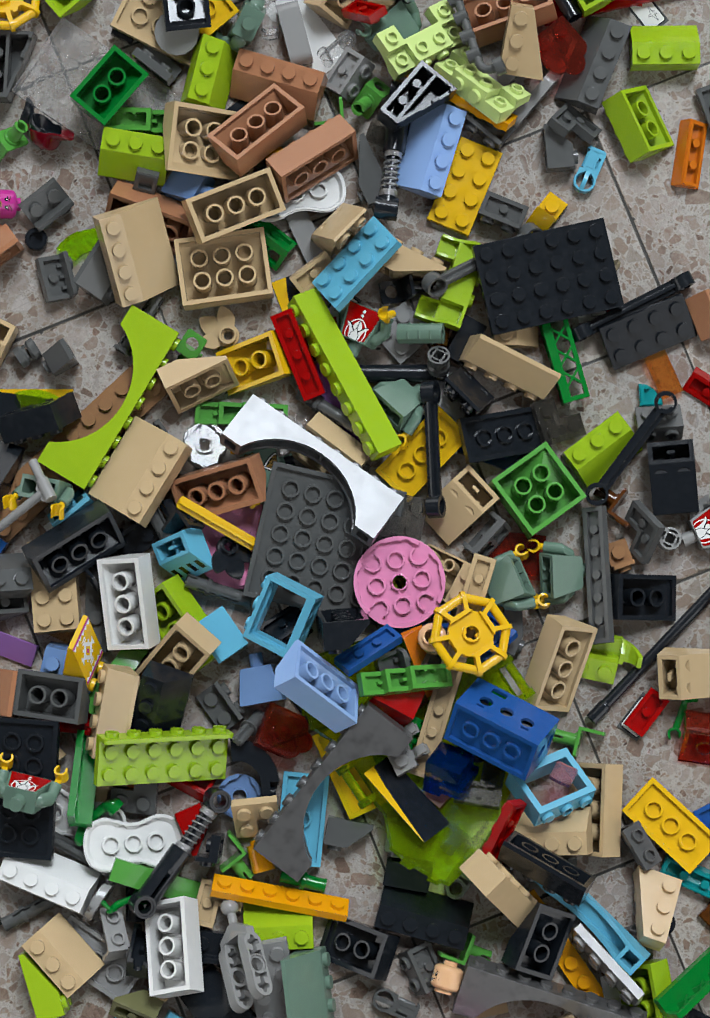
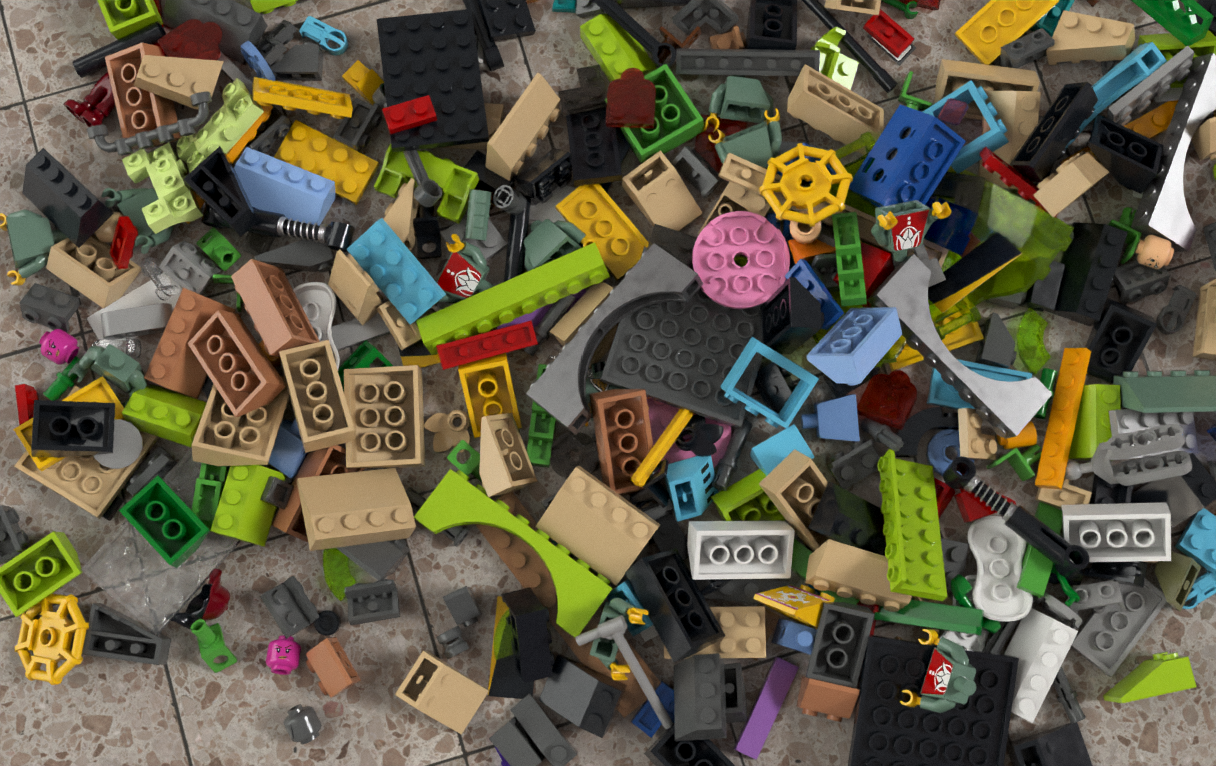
camera: 90 degrees left, 5 degrees down
(63, 955) = (1118, 655): tan slope -> none
(215, 848) = (1018, 484): black bracket -> none
(353, 867) = (1030, 341): none -> clear neon green tile
(435, 501) = (654, 216): black piece -> none
(437, 728) = (905, 225): none -> torso
(505, 258) = (409, 114): none -> red plate
(517, 157) = (302, 97): none -> yellow plate
(544, 465) = (631, 101): none -> clear red plate
(550, 111) = (256, 61): none -> medium blue tile
(556, 364) = (516, 87): green fence -> none

